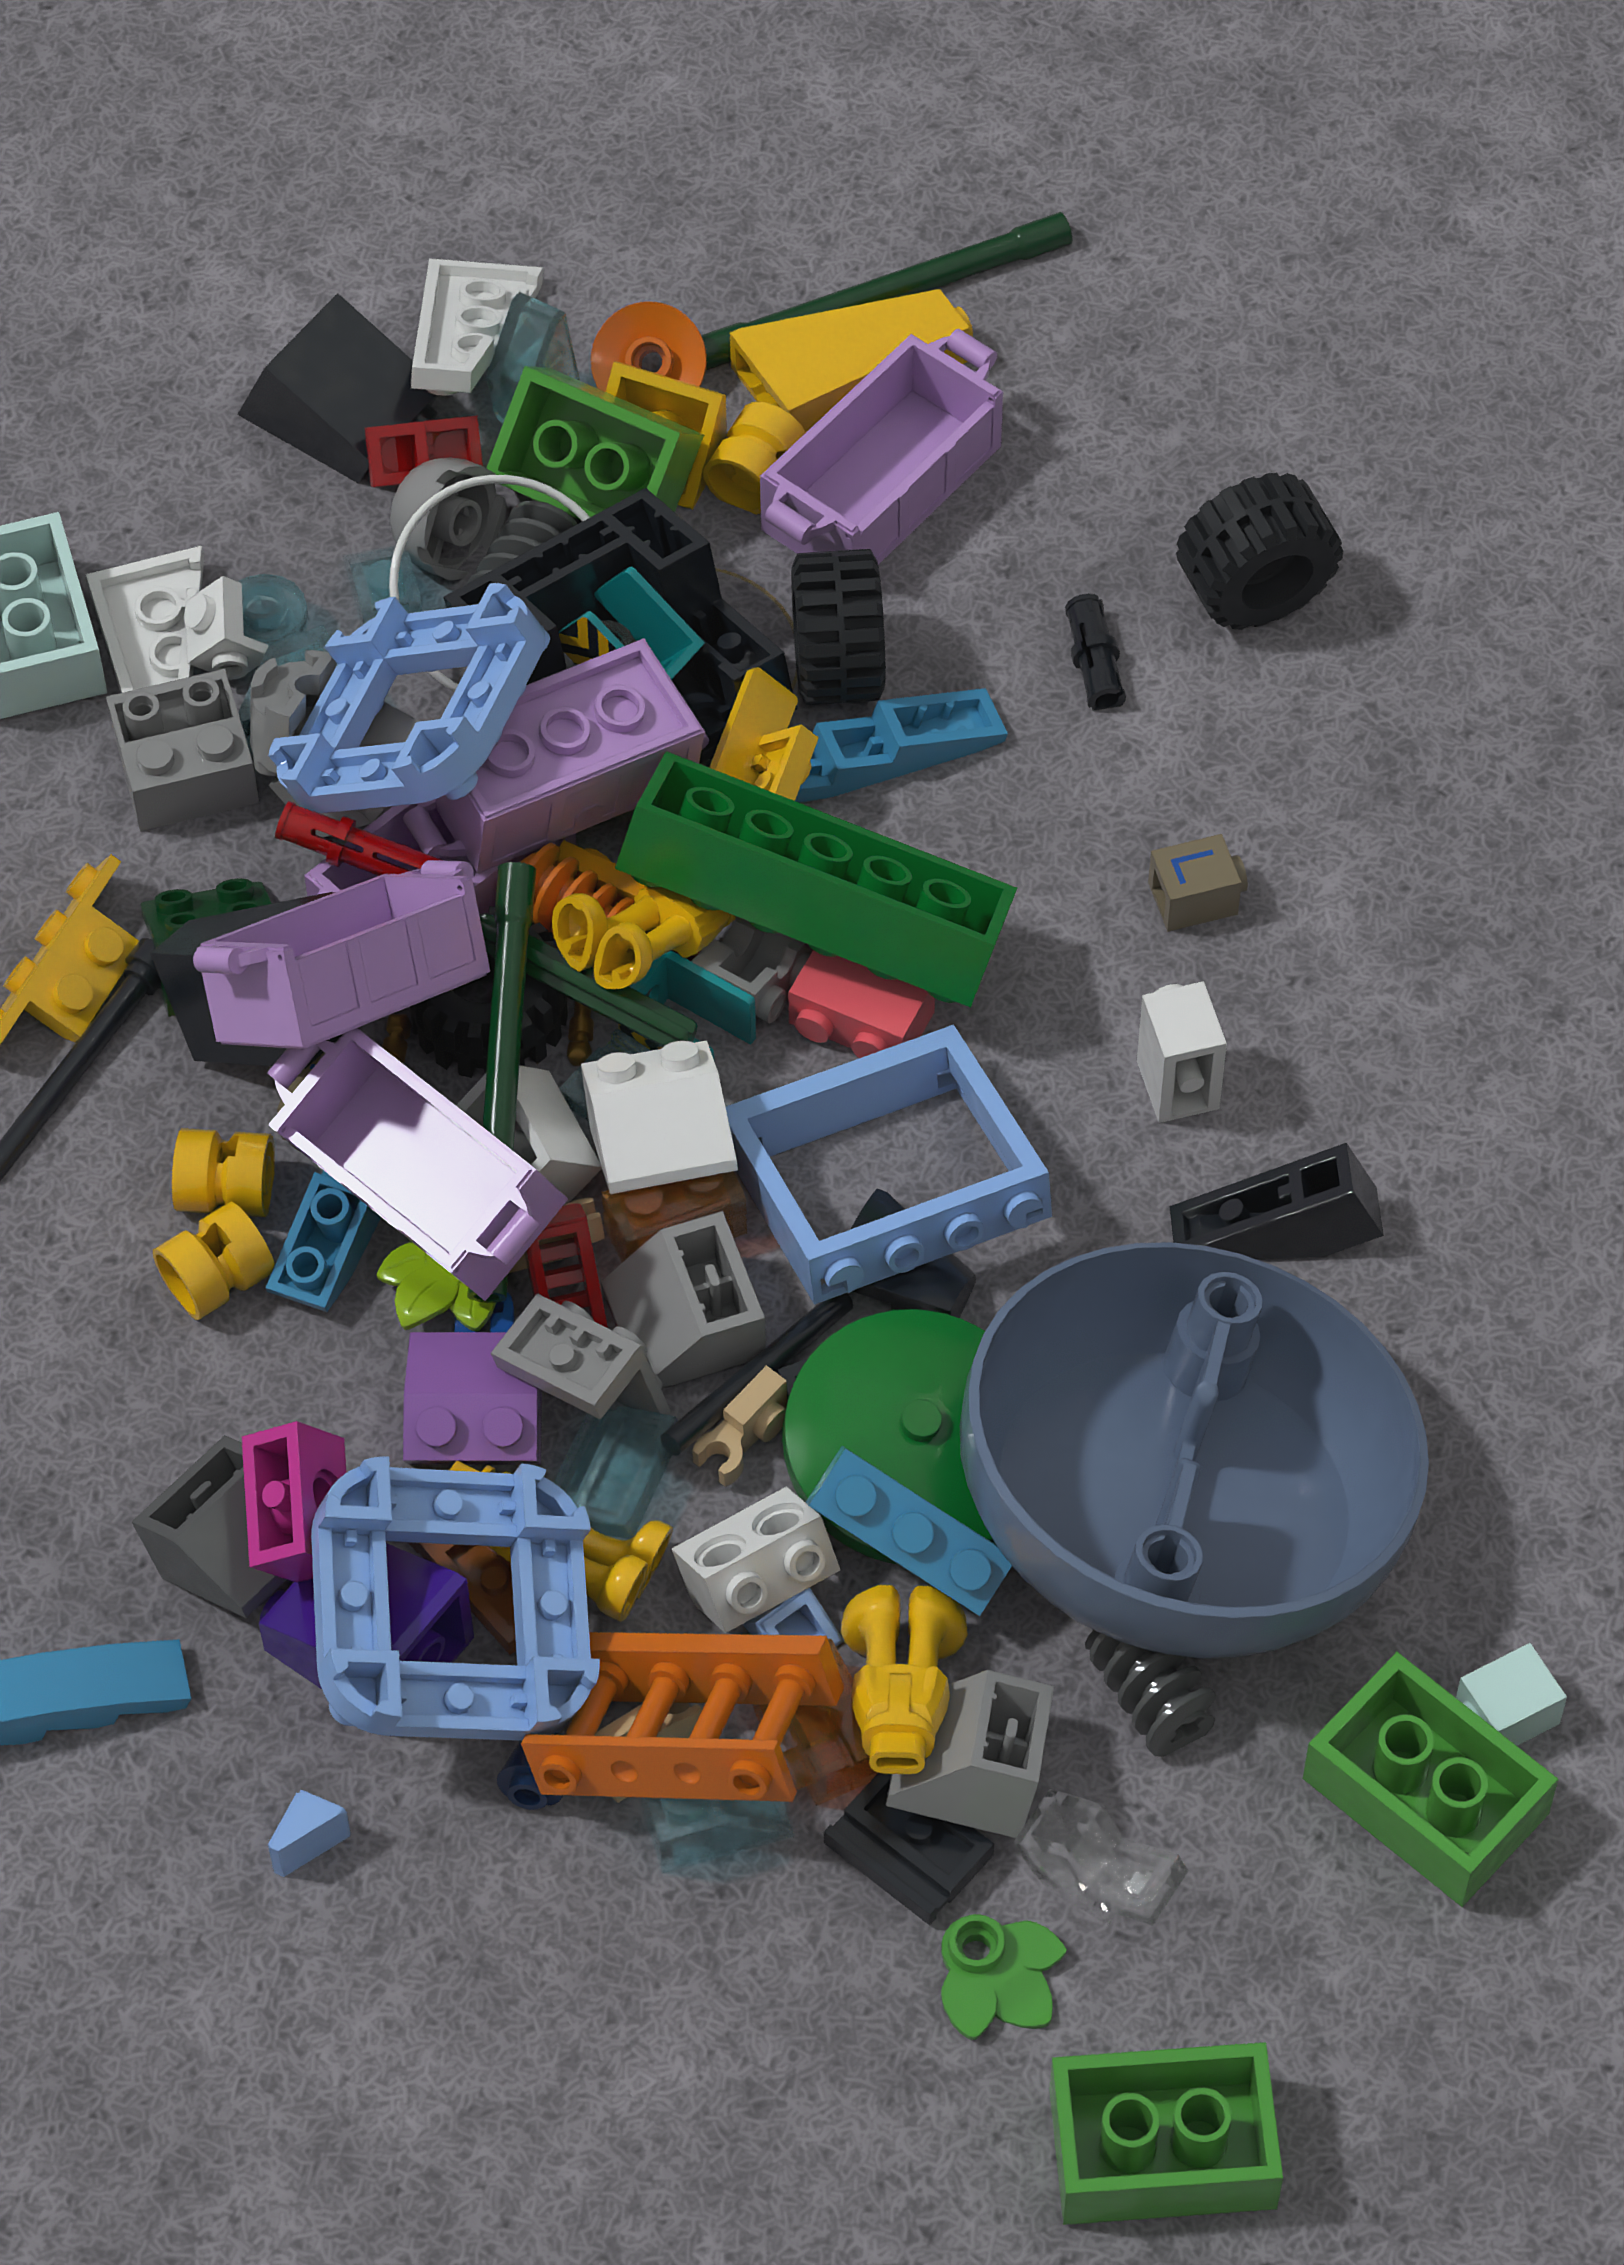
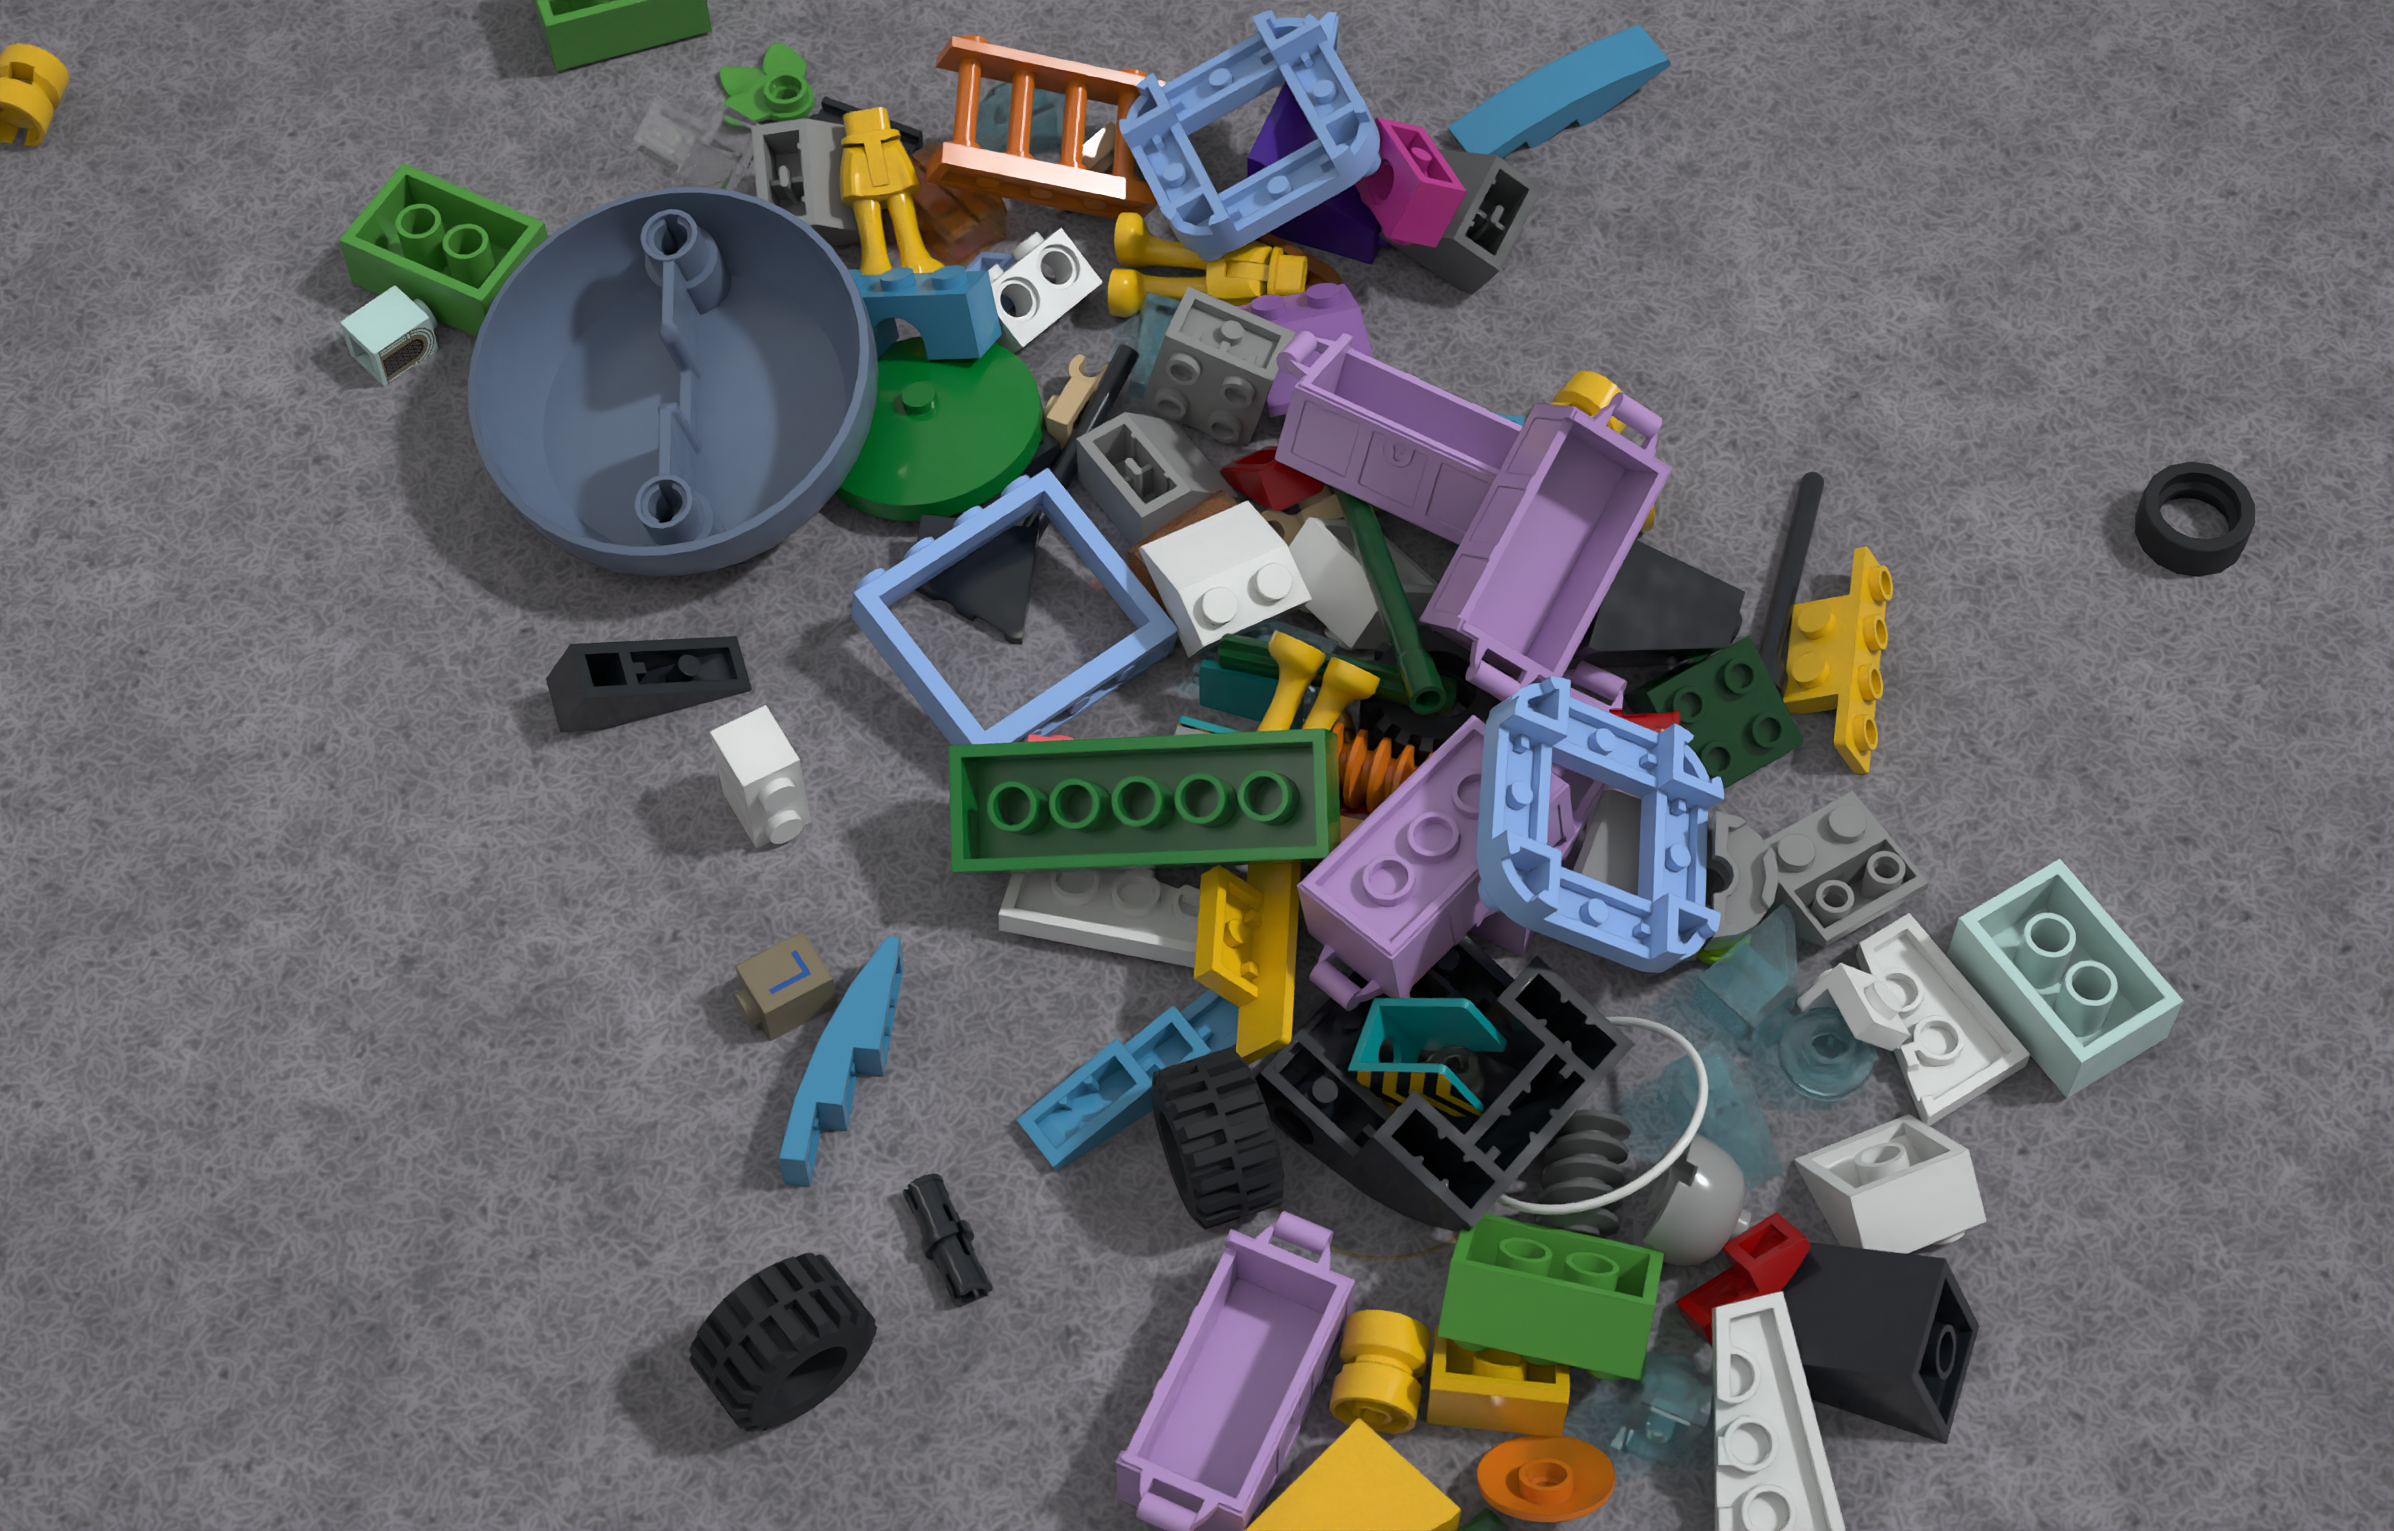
camera: 165 degrees right, 0 degrees up
(262, 508) = (1895, 1187): none -> white slope
(1148, 815) = (850, 1045): none -> dark azure slope

